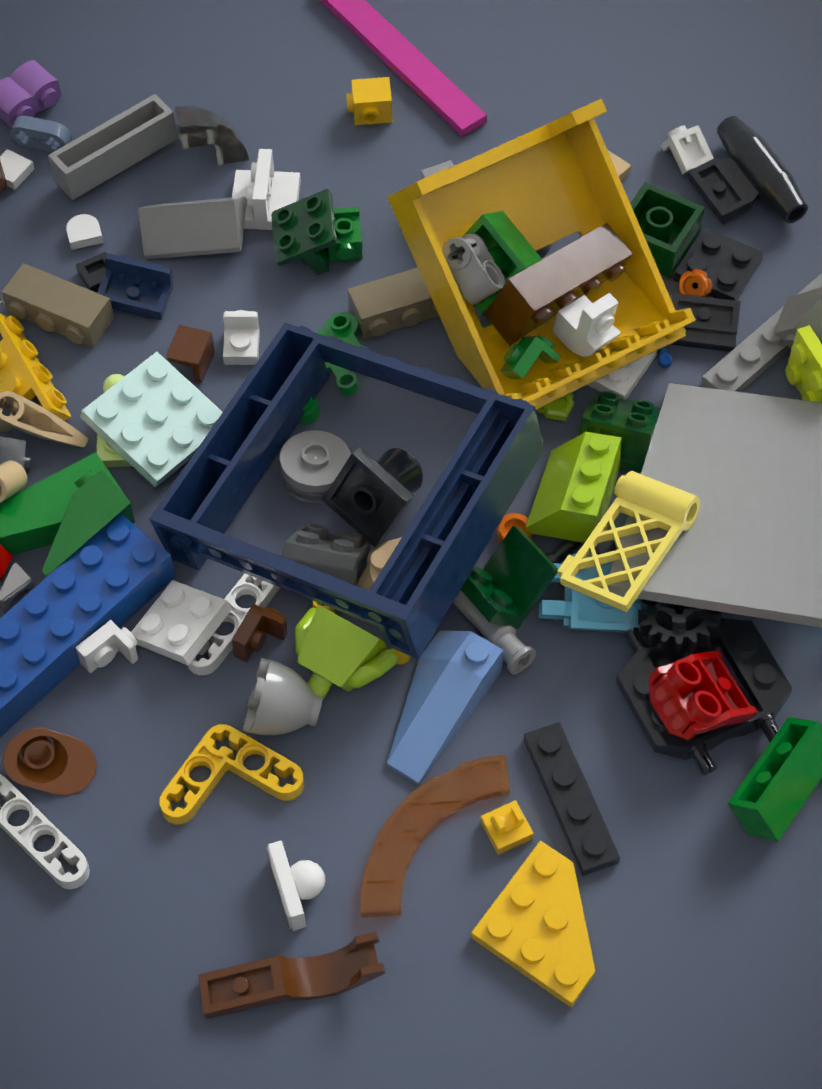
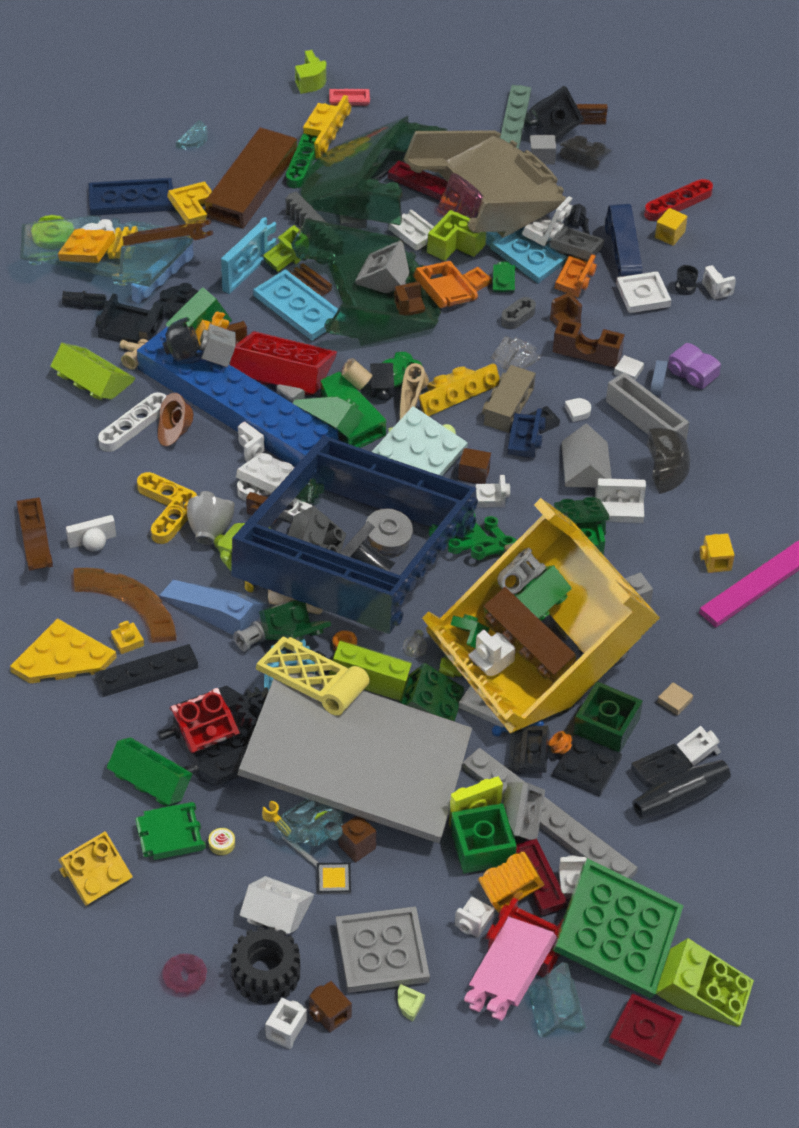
camera: 85 degrees right, 10 degrees down
(217, 577) = (311, 491): none -> clear green plate

